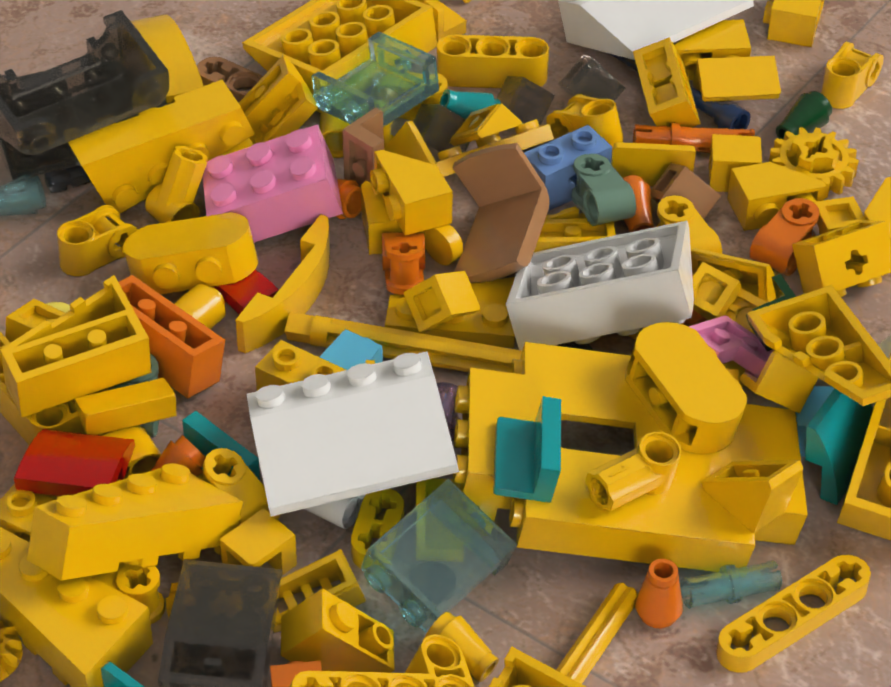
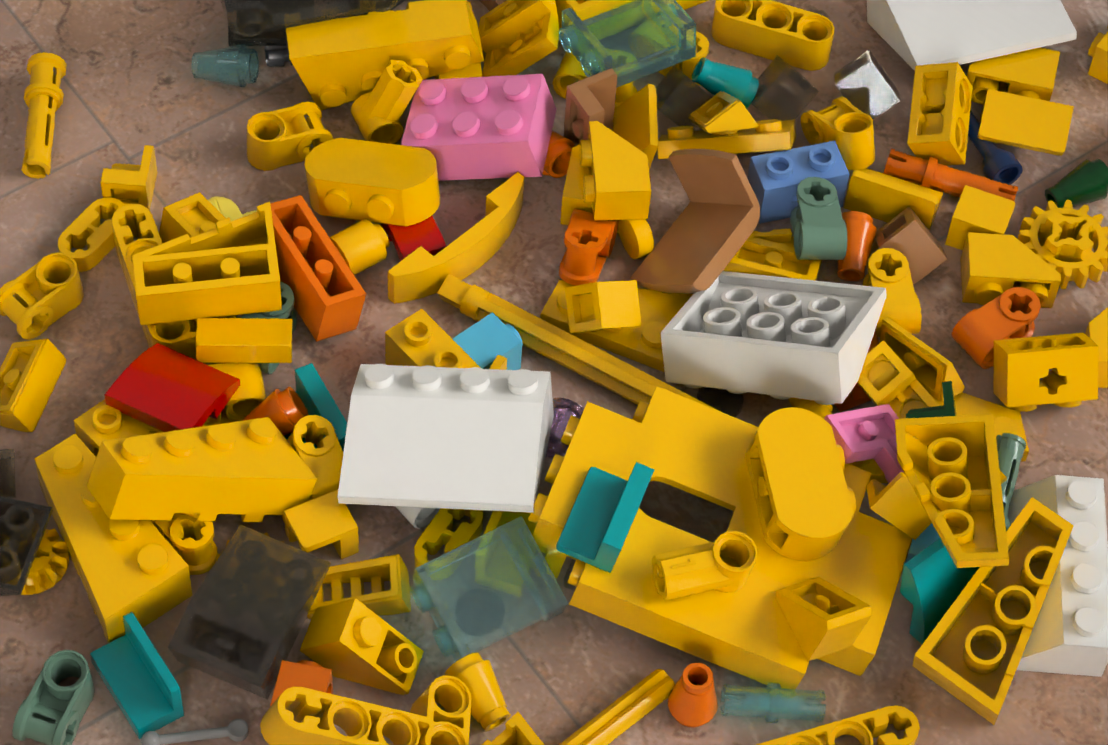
camera: 15 degrees right, 10 degrees up
(838, 213) = (1062, 316): yellow tile -> none

